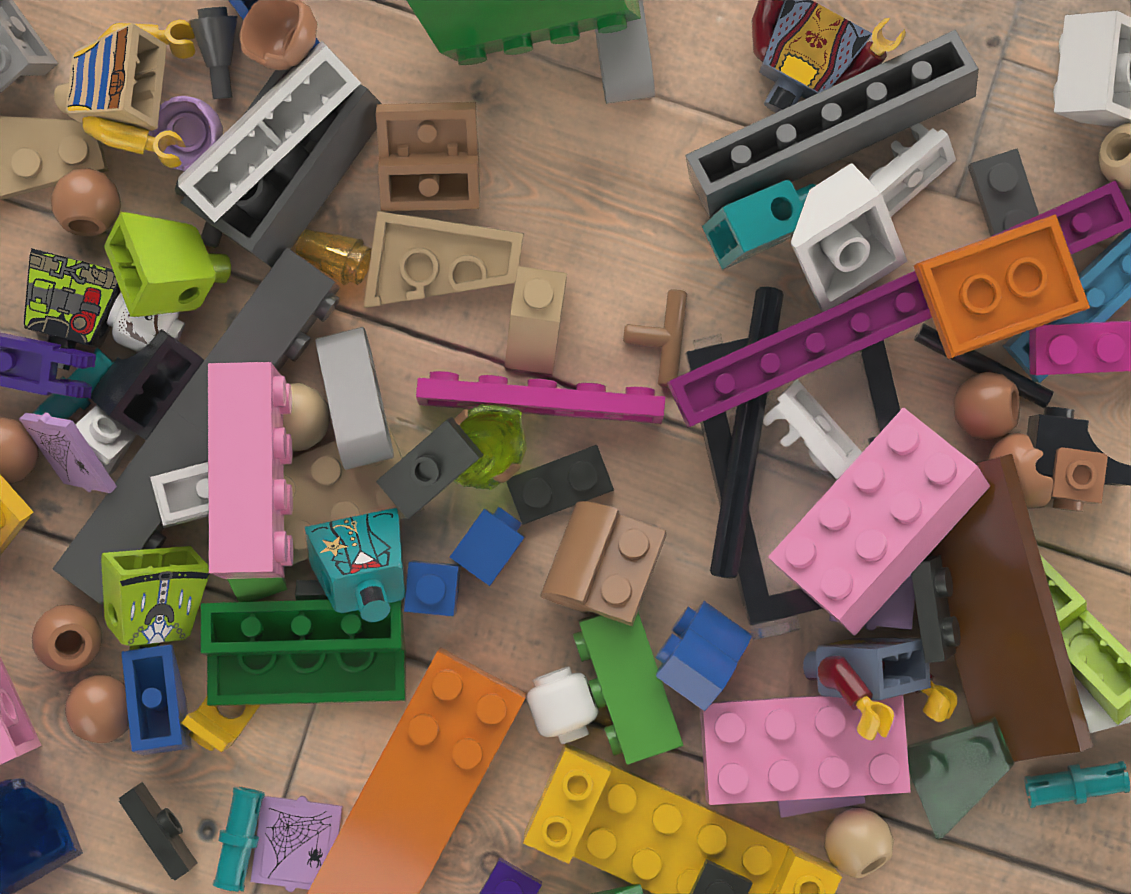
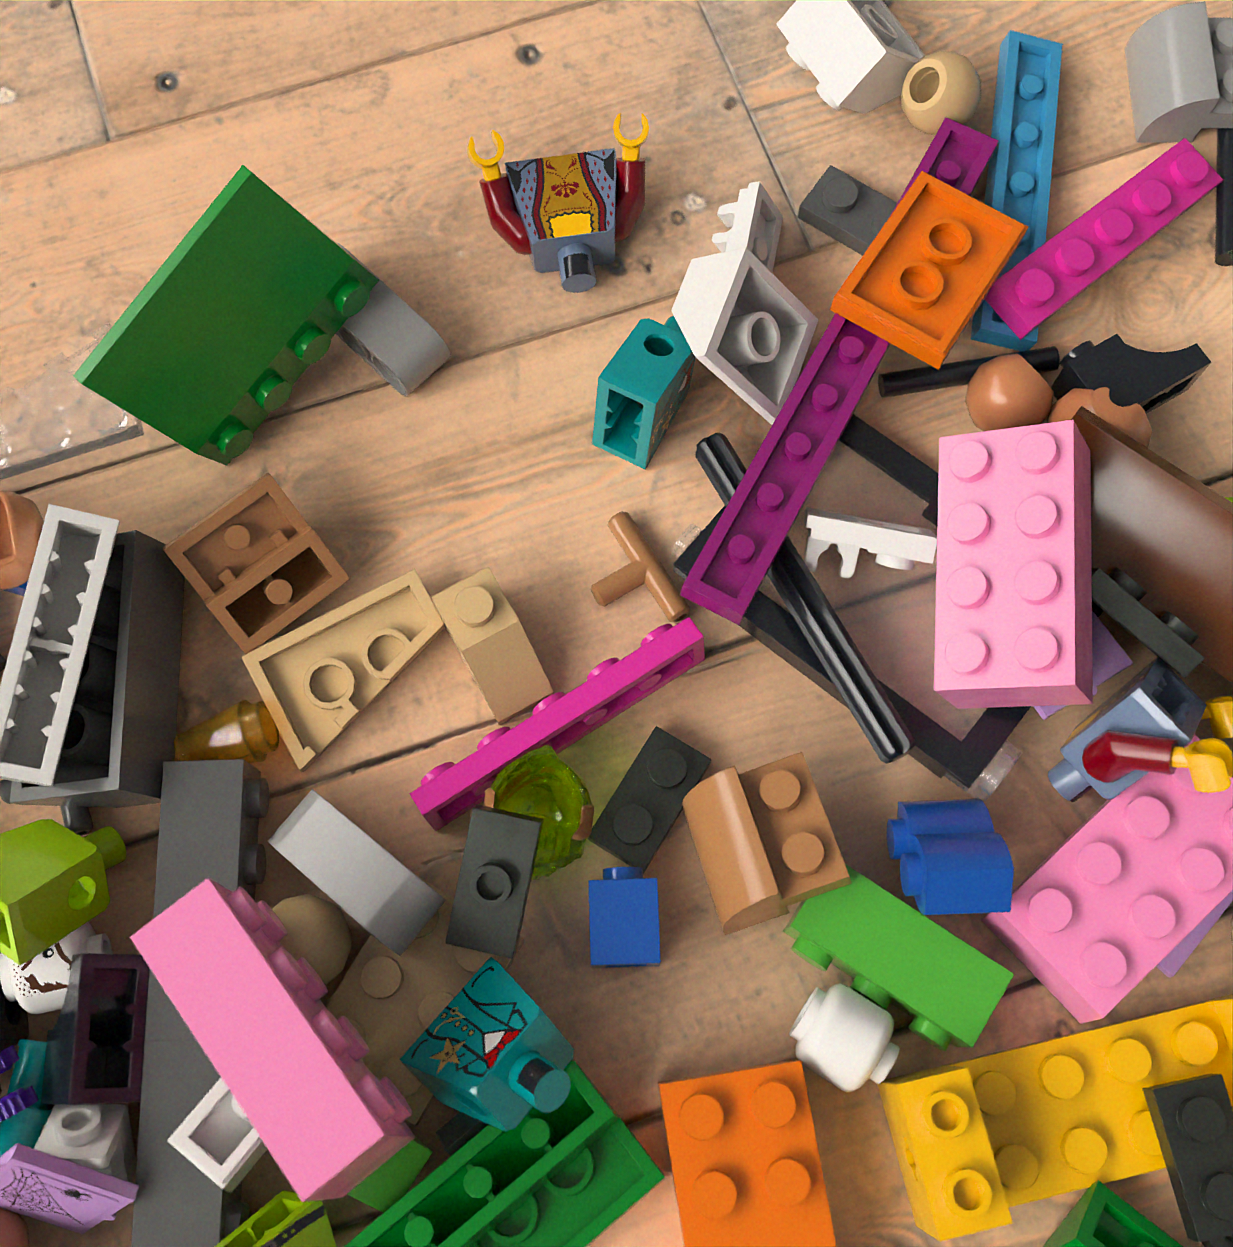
camera: 35 degrees left, 15 degrees down
(432, 588) = (597, 1017): blue brick -> none
(834, 122) = (642, 249): dark grey brick -> none
(1078, 478) = (1161, 390): nougat bracket -> none

